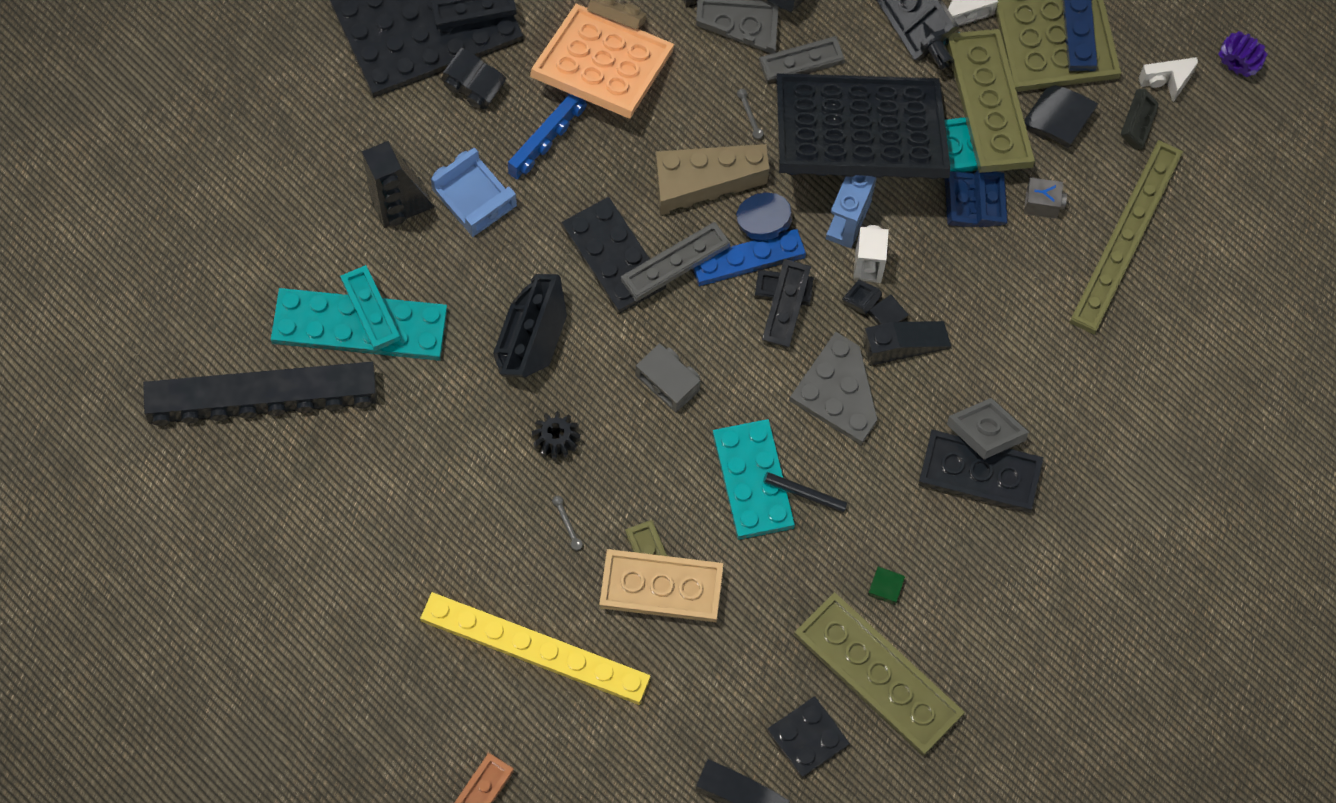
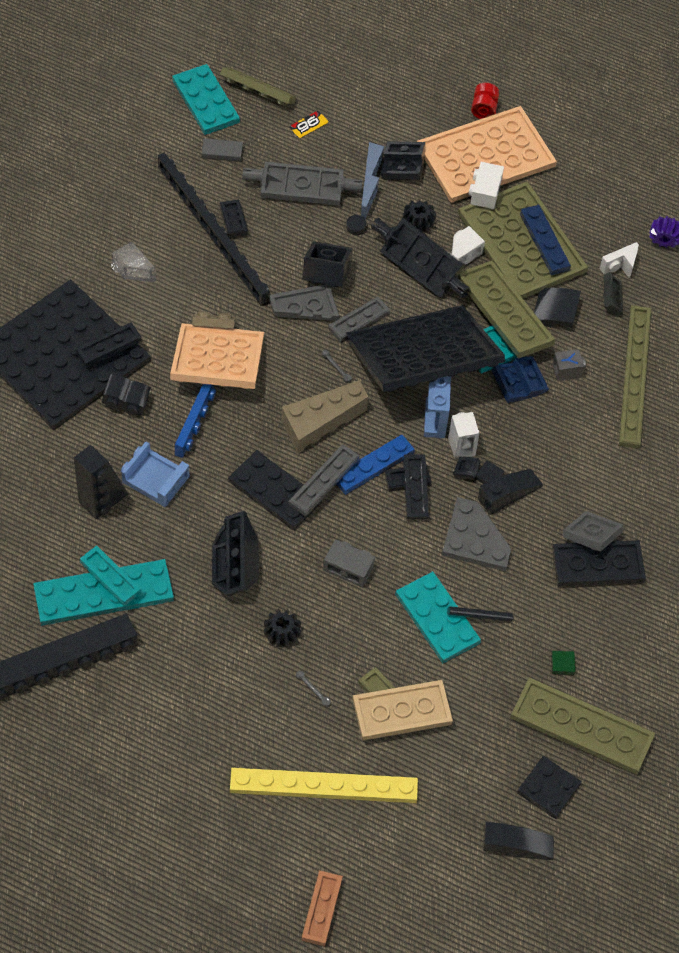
camera: 20 degrees left, 10 degrees down
(764, 216) = (375, 431): tile -> none

